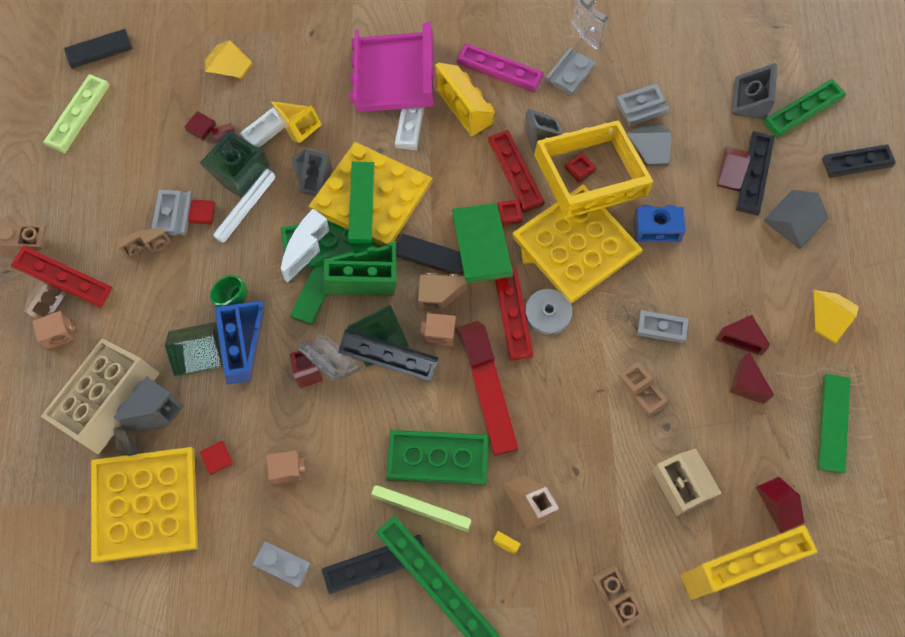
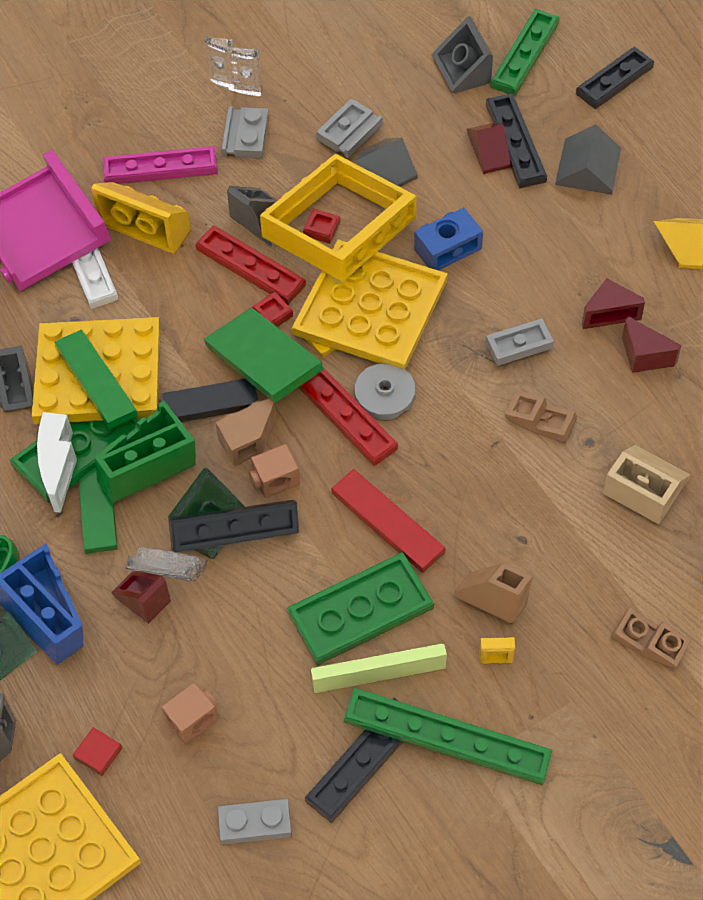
camera: 30 degrees left, 10 degrees down
(475, 343) = (326, 463): dark red slope -> none

